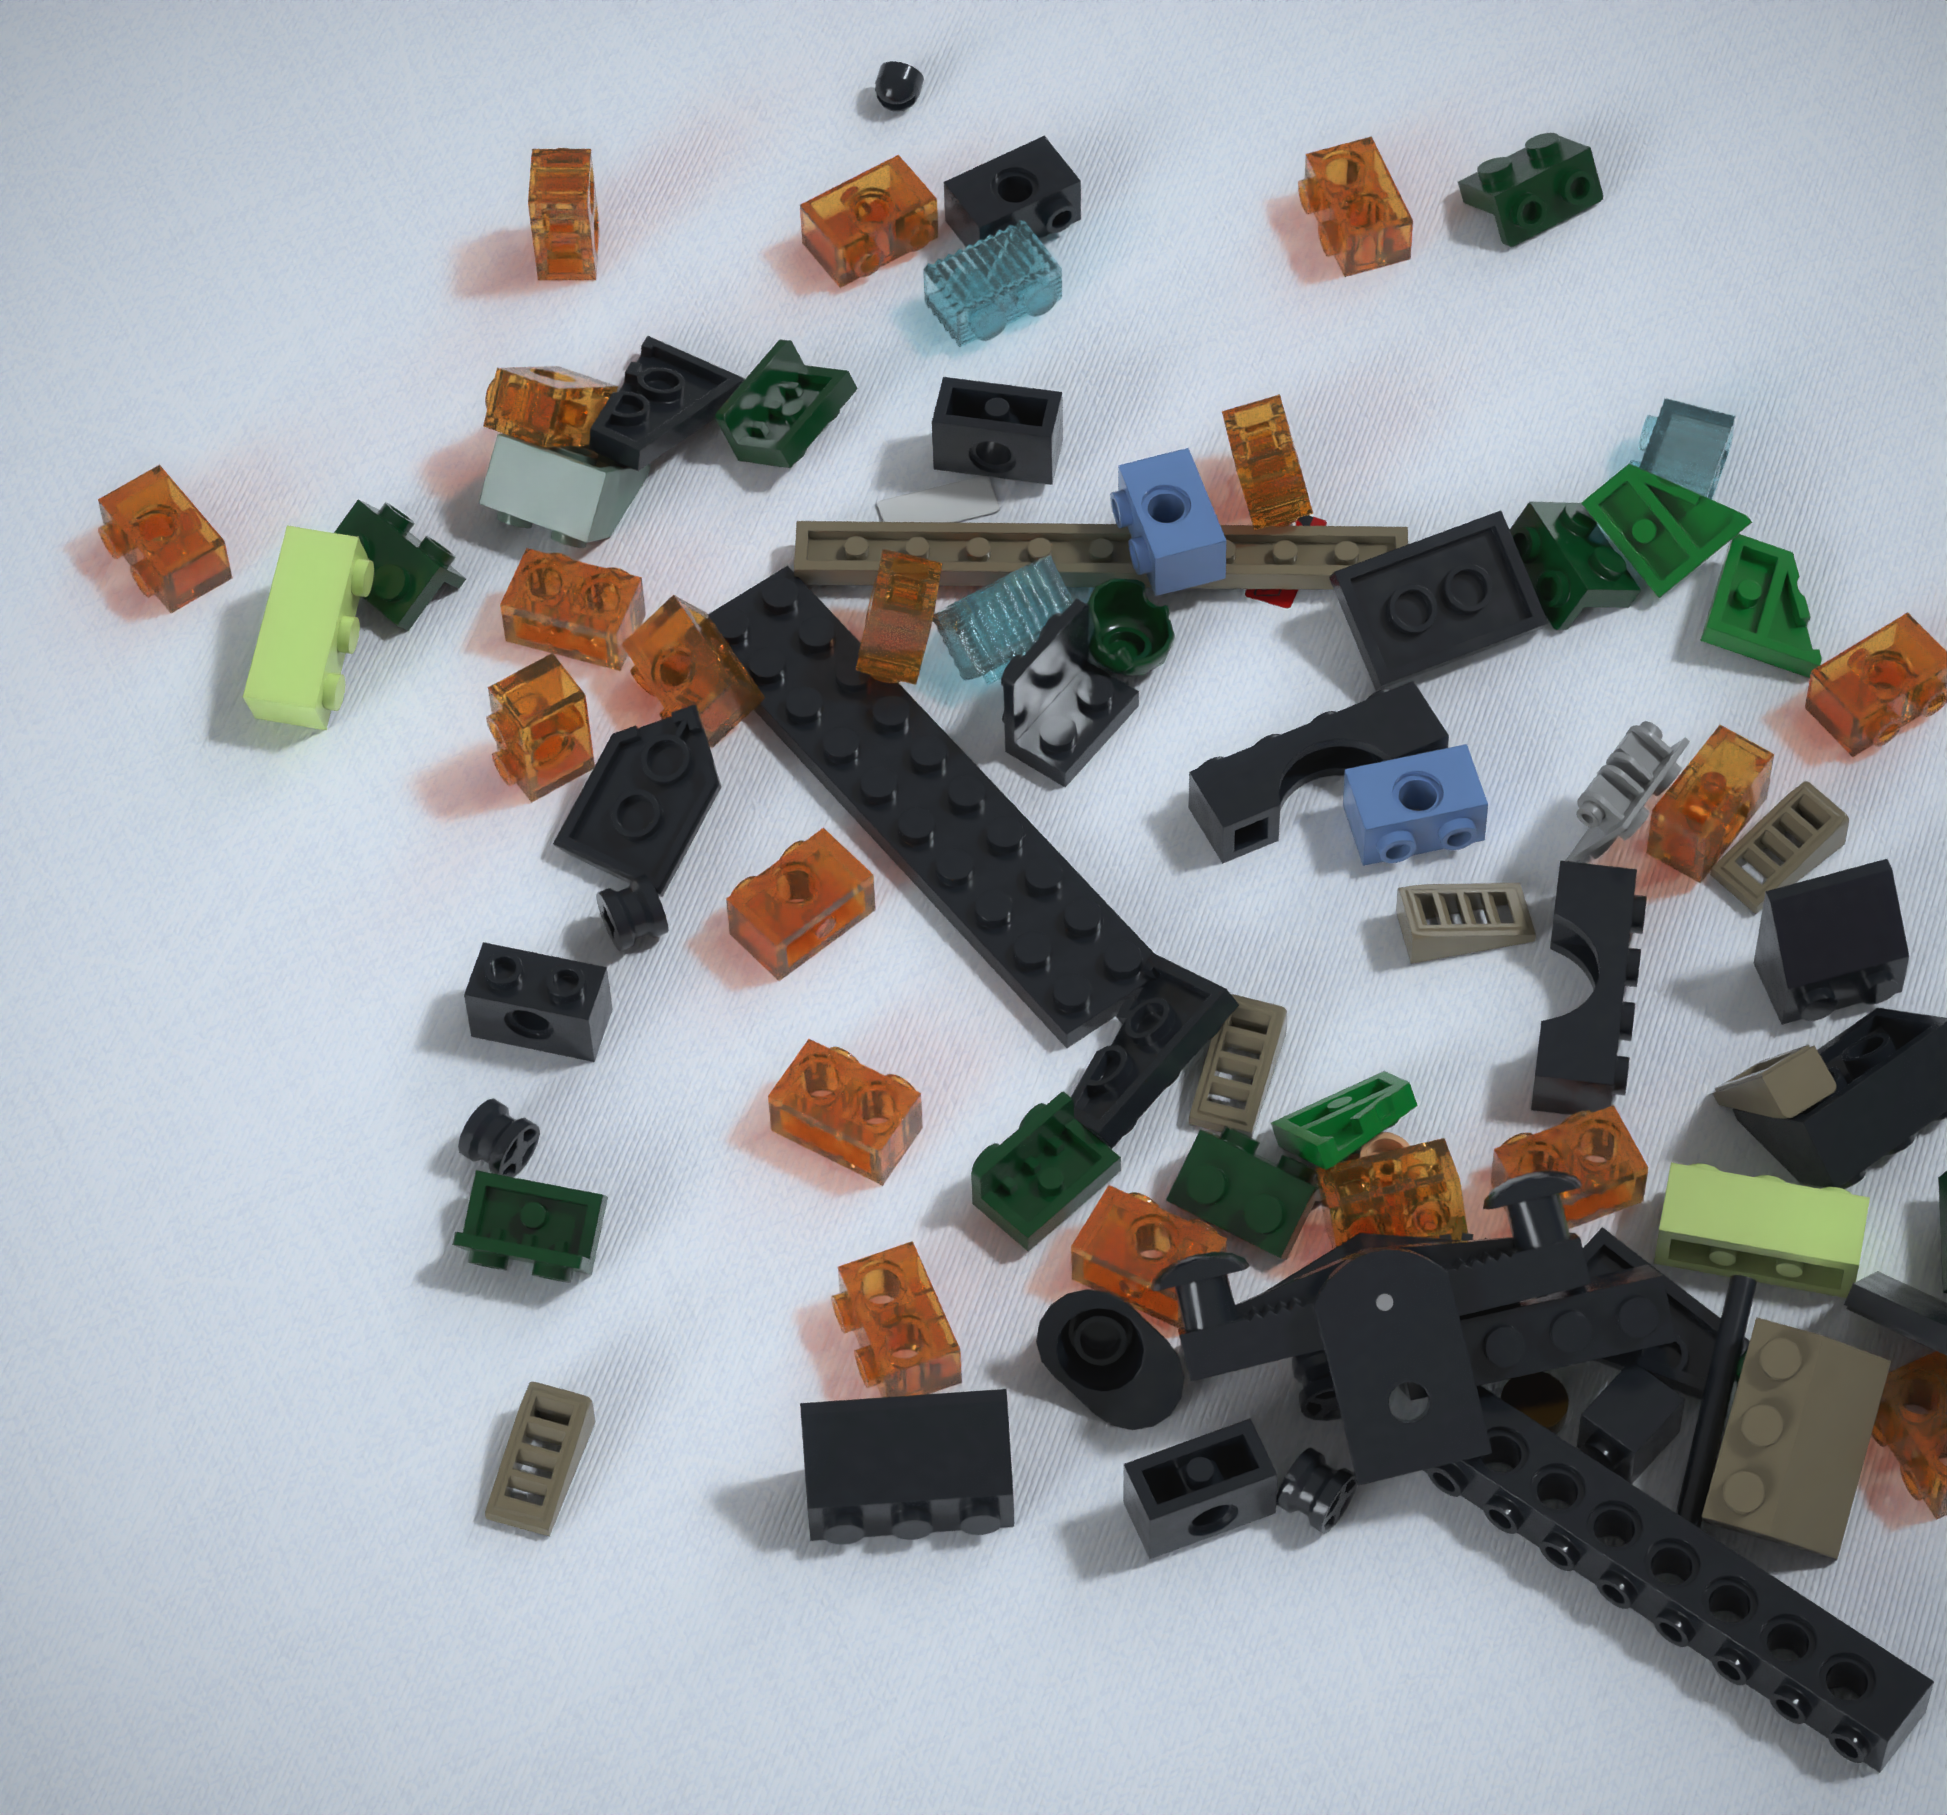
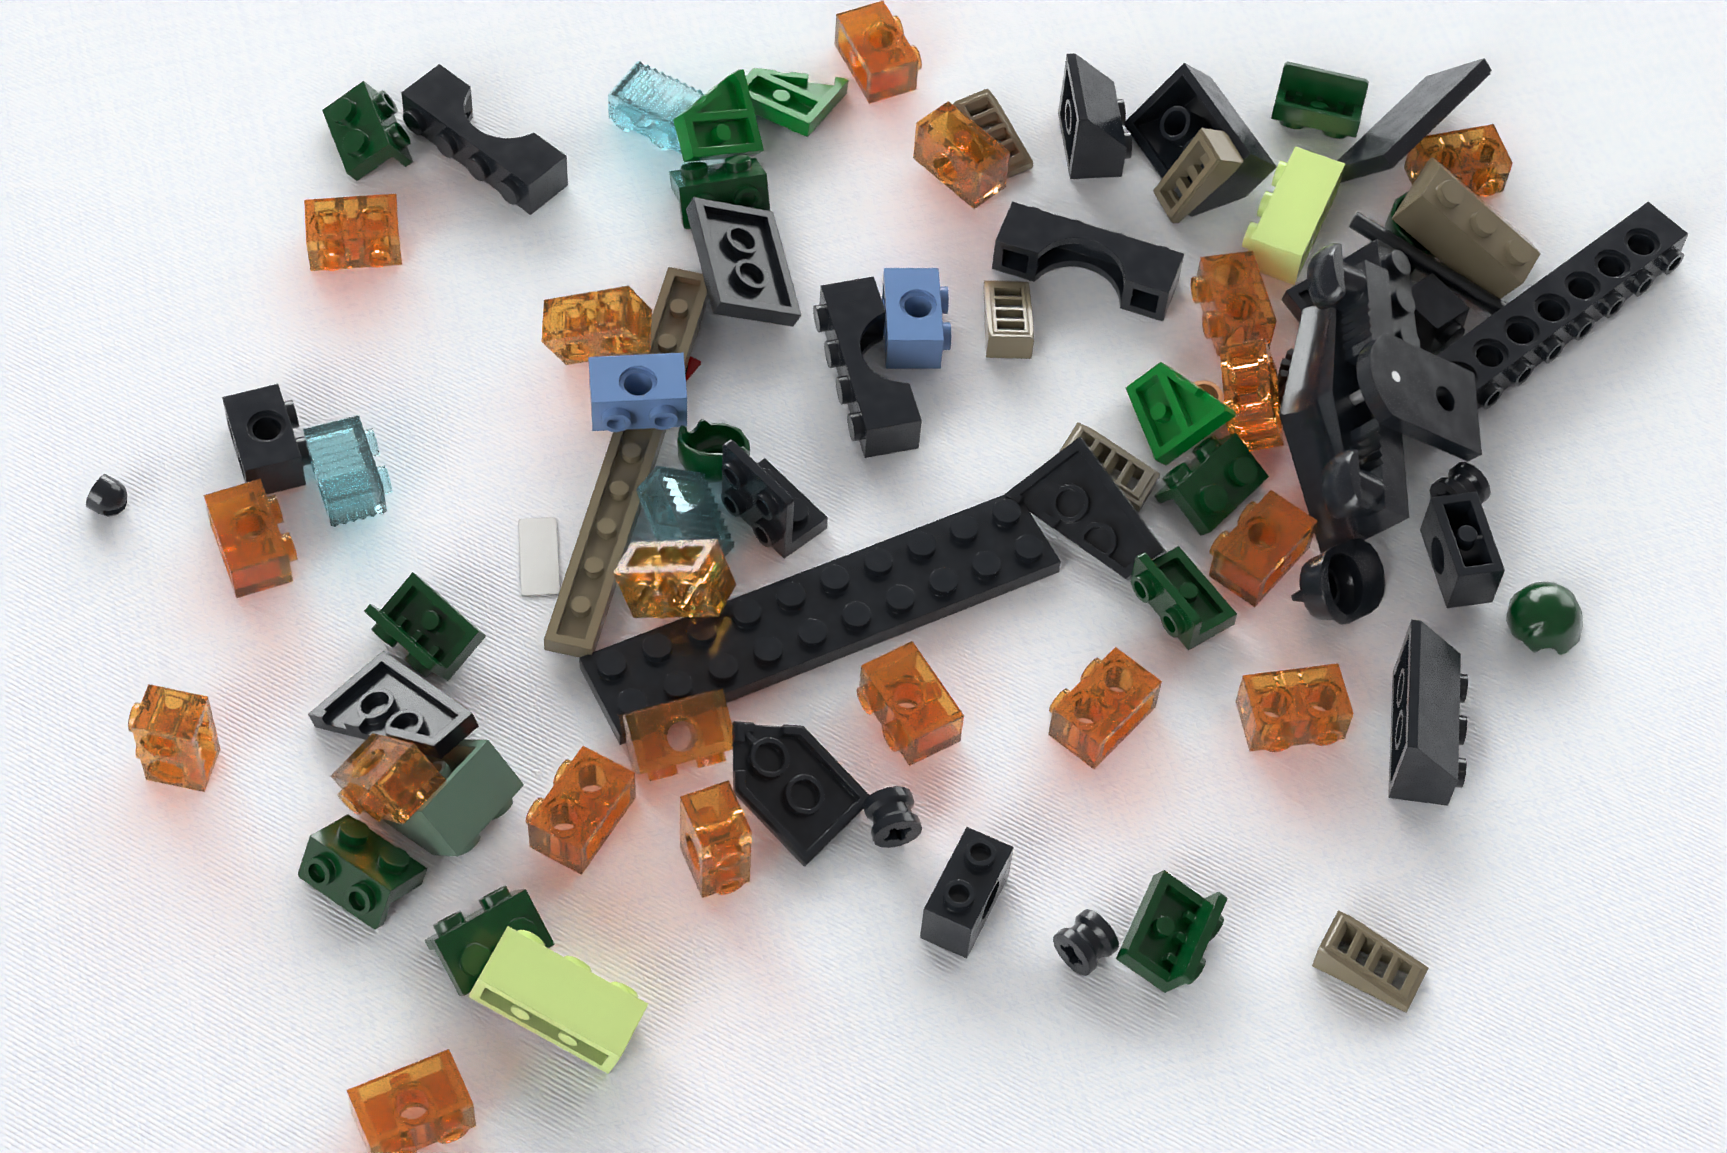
camera: 85 degrees left, 0 degrees up
(451, 435) = (359, 869): none -> dark green bracket
(997, 430) = (504, 488): black brick -> none
(1135, 1626) = (1545, 617): none -> dark green hair
(1586, 250) = (520, 168): none -> black arch
(1618, 793) = (952, 194): light grey hinge -> none

